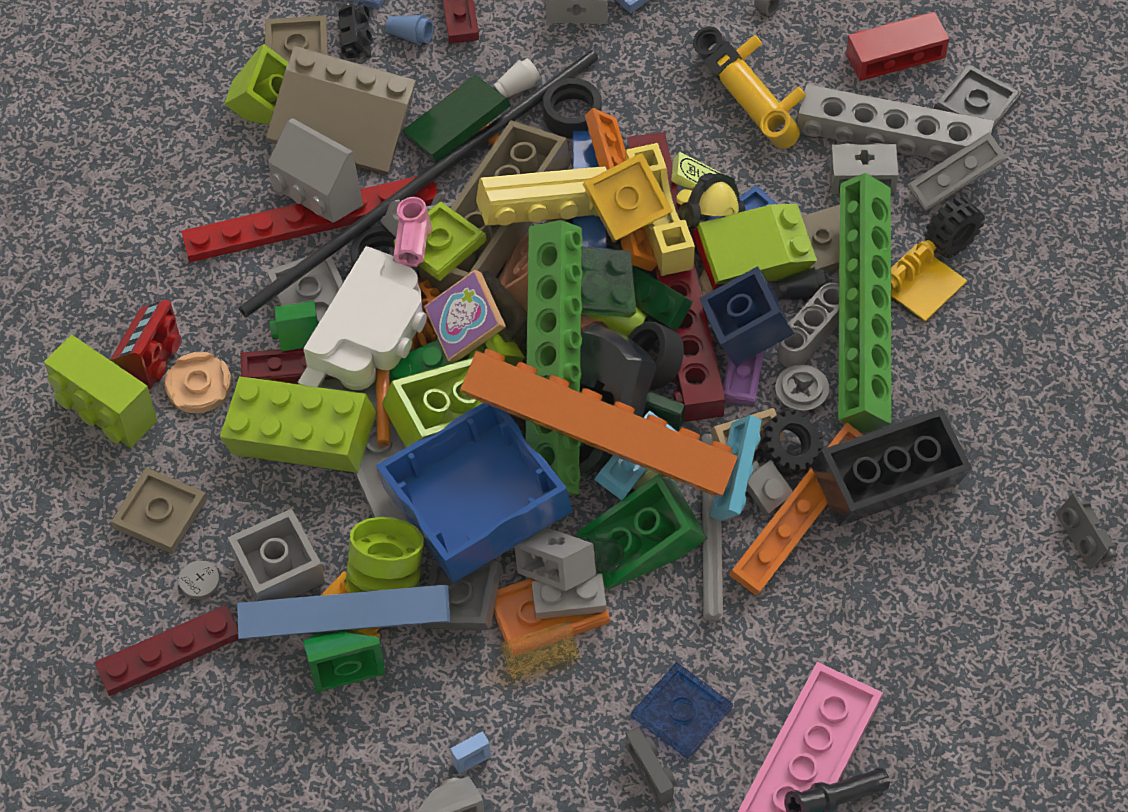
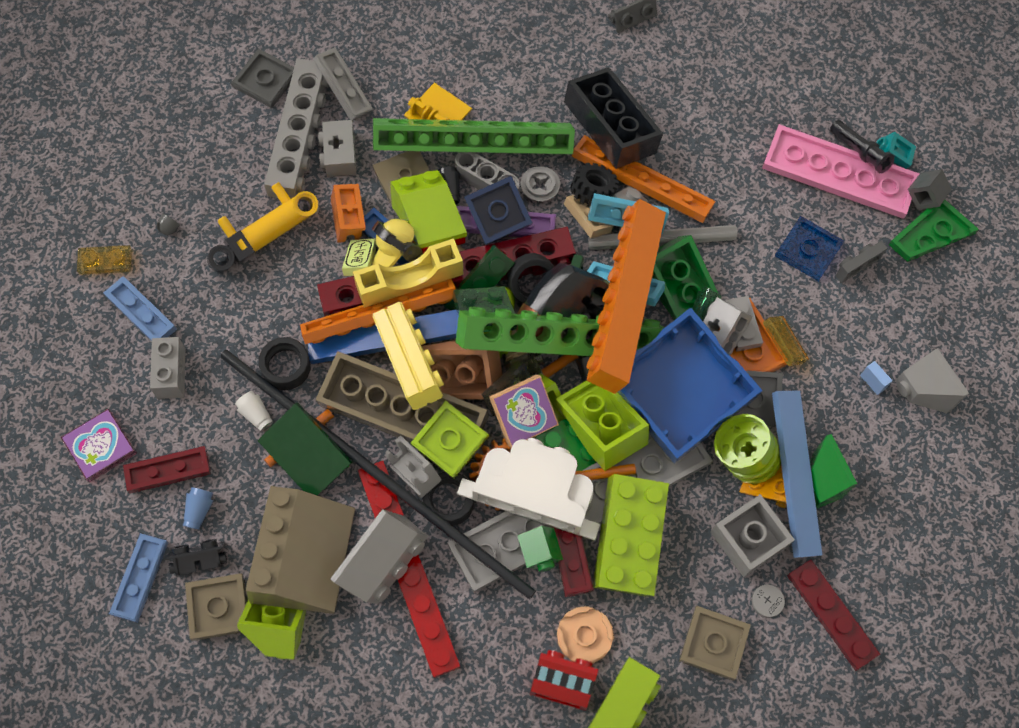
camera: 100 degrees left, 10 degrees up
(412, 231) = (459, 454): bright pink piece -> none
(627, 197) = (411, 288): yellow plate -> none
(769, 169) = (347, 211): none -> orange hinge
(897, 46) = (215, 129): brick -> none
(954, 226) = (396, 83): black tyre -> none

